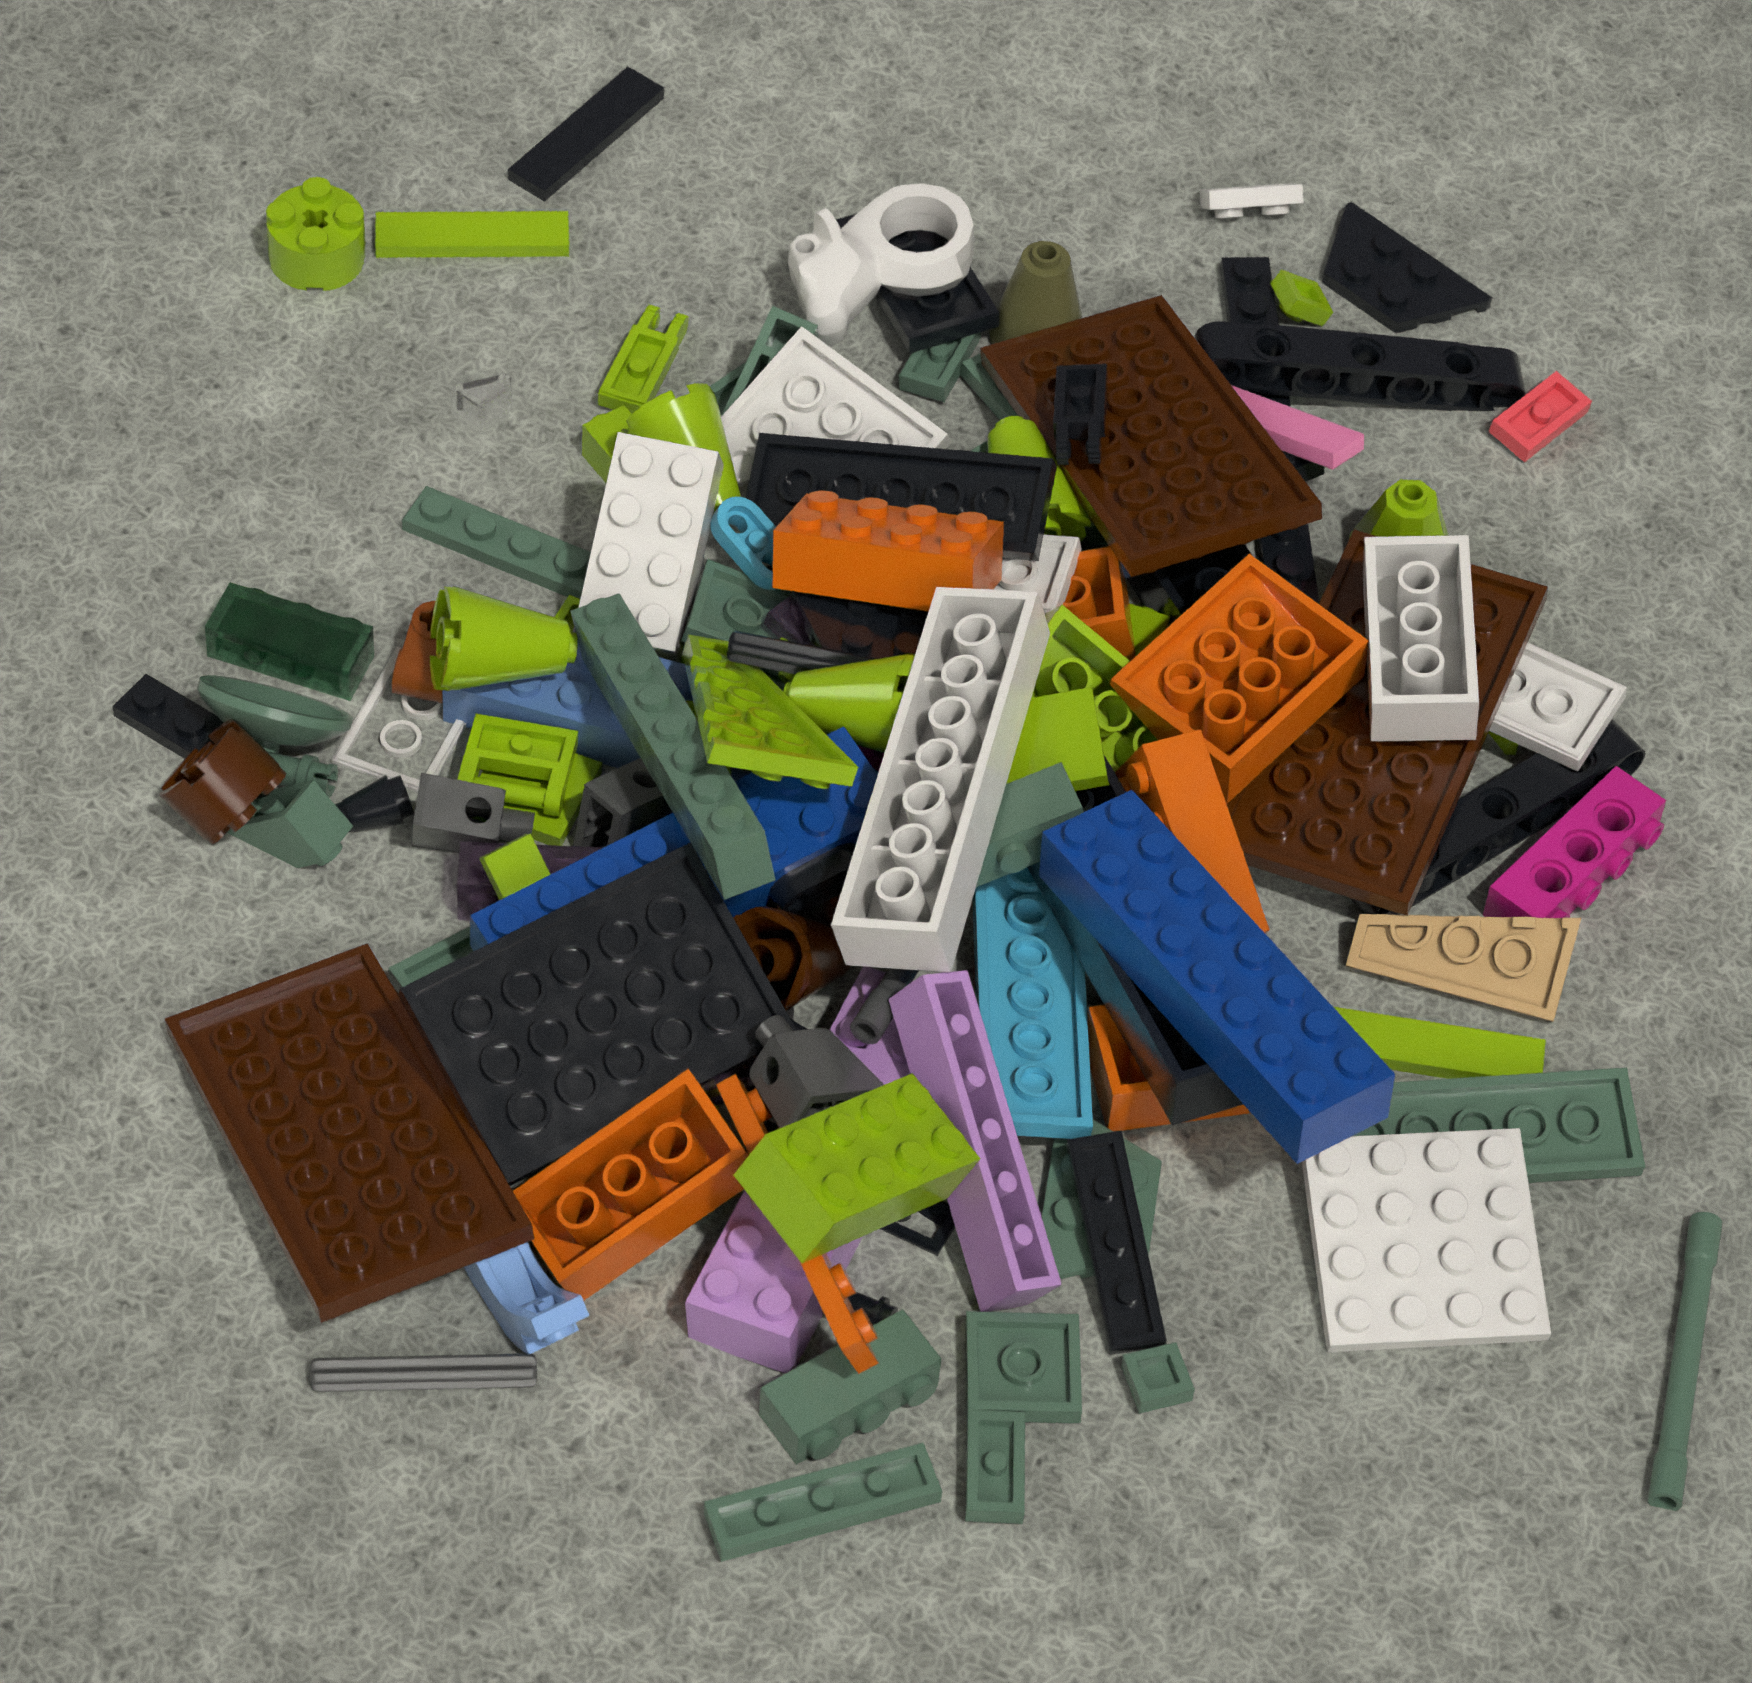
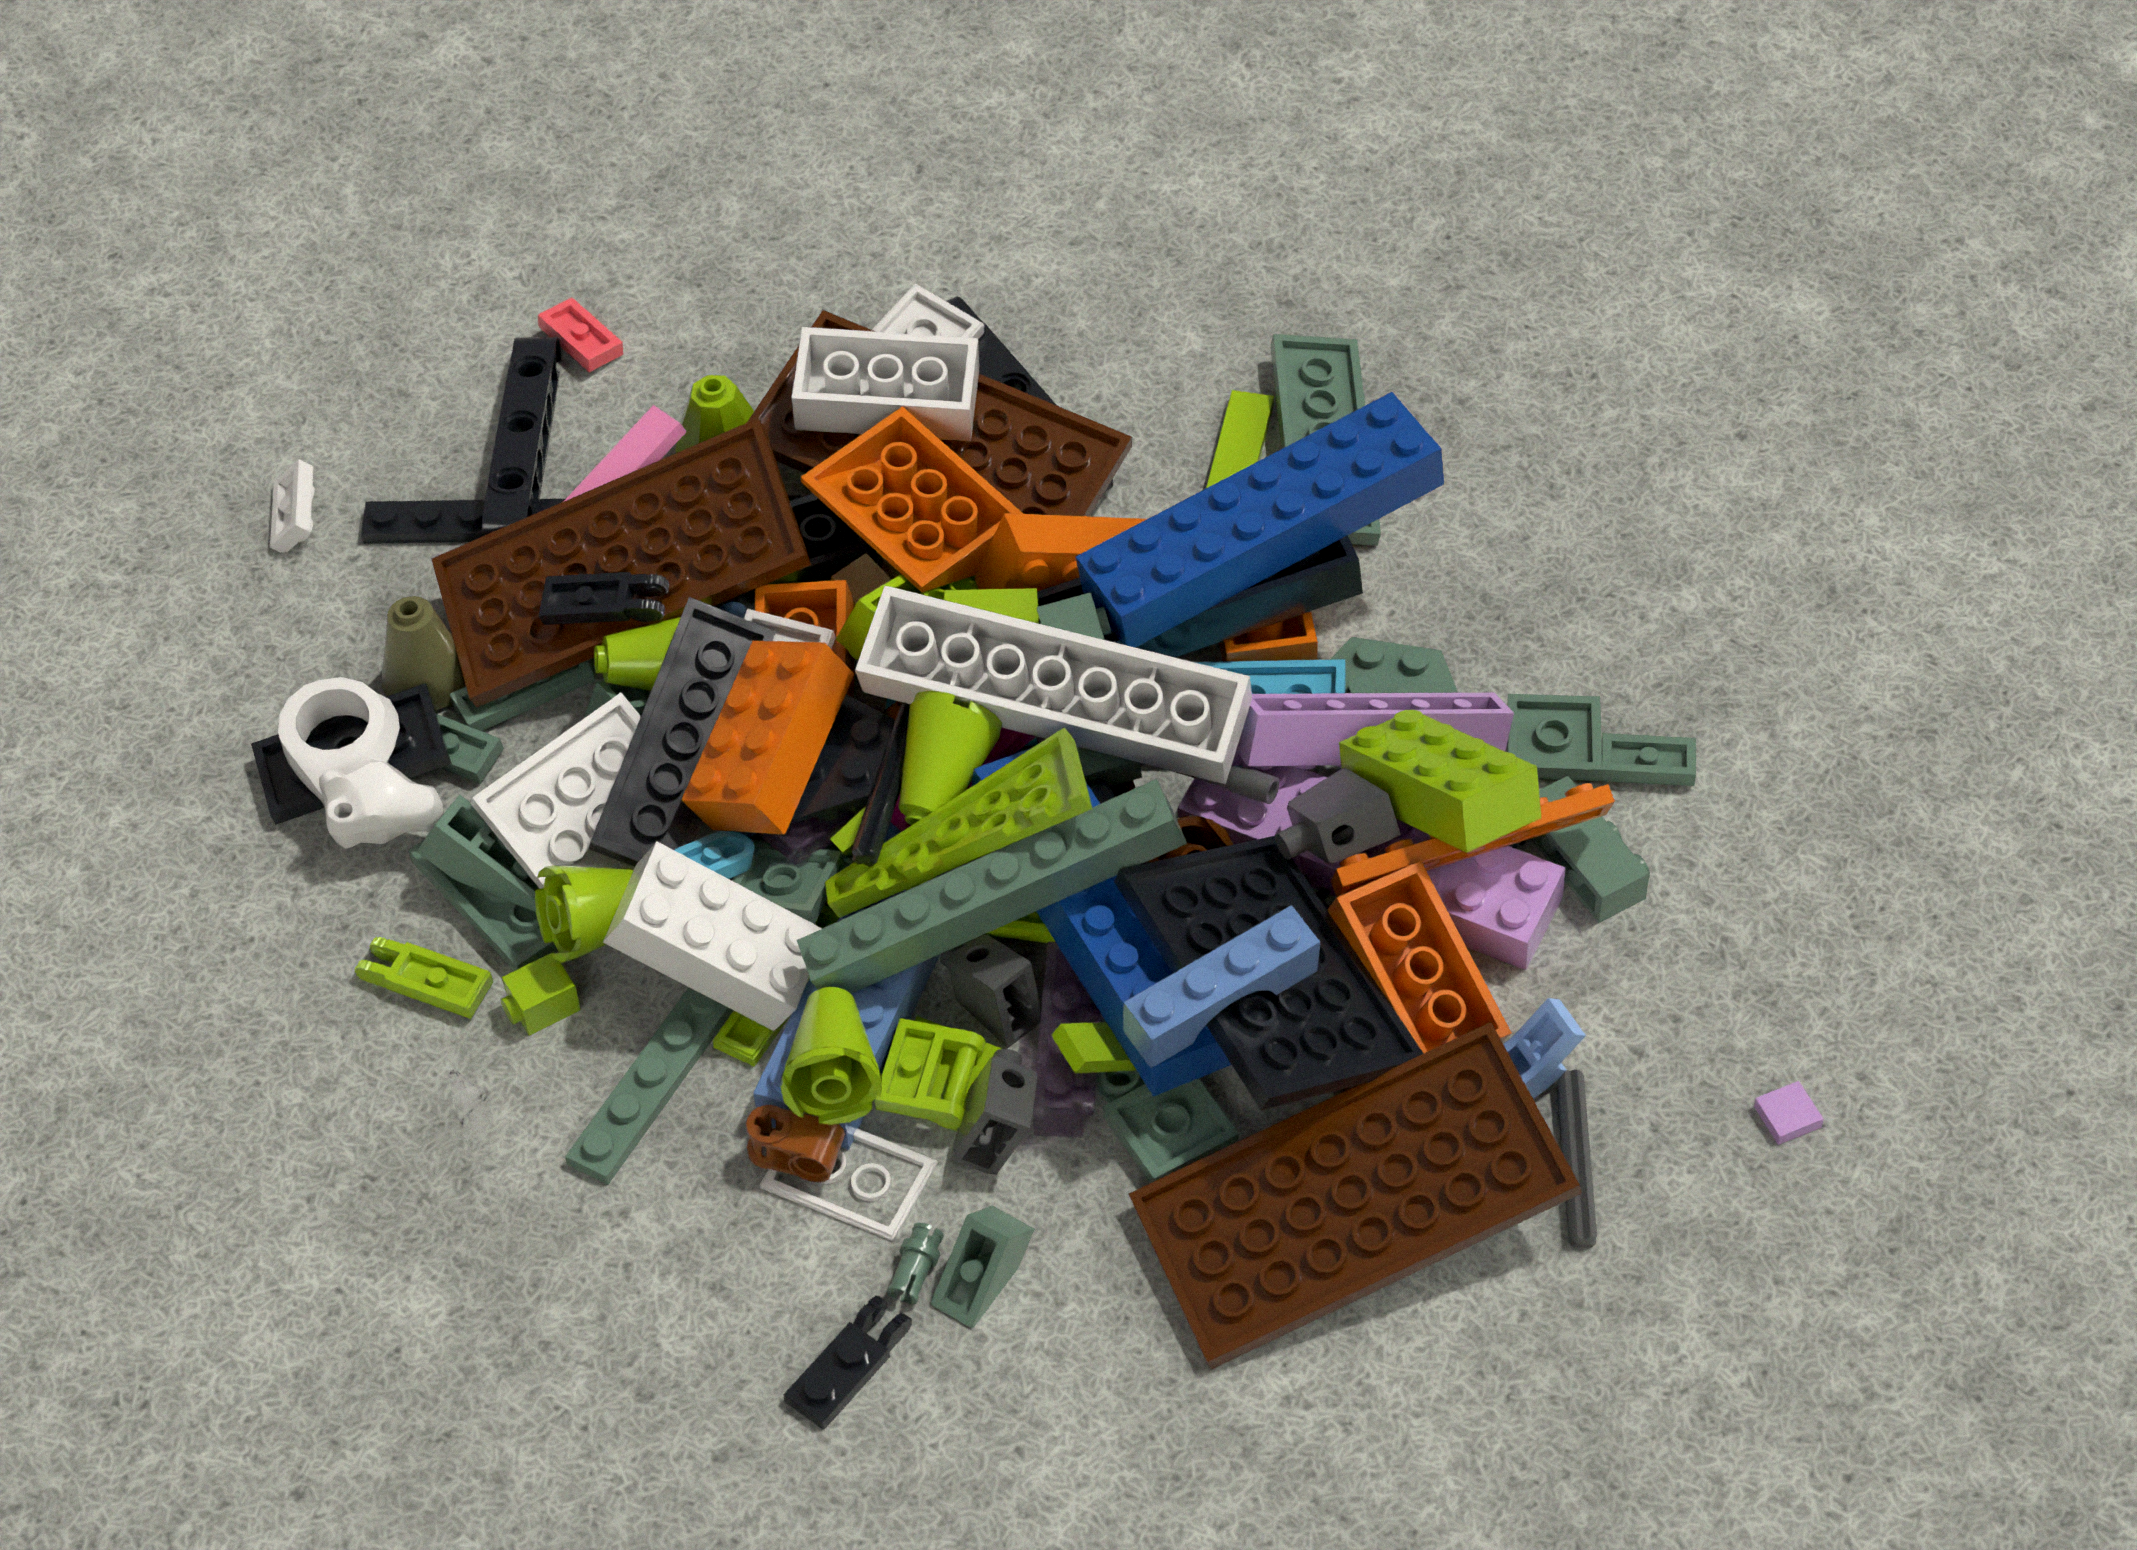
camera: 80 degrees left, 0 degrees up
(220, 782) = (947, 1306): reddish brown brick -> none
(272, 713) = (859, 1263): sand green dish -> none
(290, 641) = (756, 1266): clear green brick -> none
(316, 236) = (223, 1248): lime brick -> none
(377, 805) = (957, 1190): black cone -> none
(472, 234) = (227, 1123): lime tile -> none
(485, 1592) = (1788, 1112): none -> lavender tile
(571, 970) = (1178, 1007): none -> medium blue arch
(585, 133) = (105, 1023): black tile -> none
(822, 1502) = (1689, 875): sand green plate -> none
(1116, 1242) = (1440, 663): black tile -> none
(1157, 1377) = (1559, 651): sand green plate -> none
(1301, 298) = (422, 481): lime plate -> none
(1394, 277) = (396, 422): black wing -> none
(1425, 1241) = (1479, 494): white plate -> none
(1482, 959) = (1159, 416): tan wing -> none
(1580, 851) = (1060, 353): dark pink brick -> none
(1670, 1461) = (1612, 356): sand green piece -> none

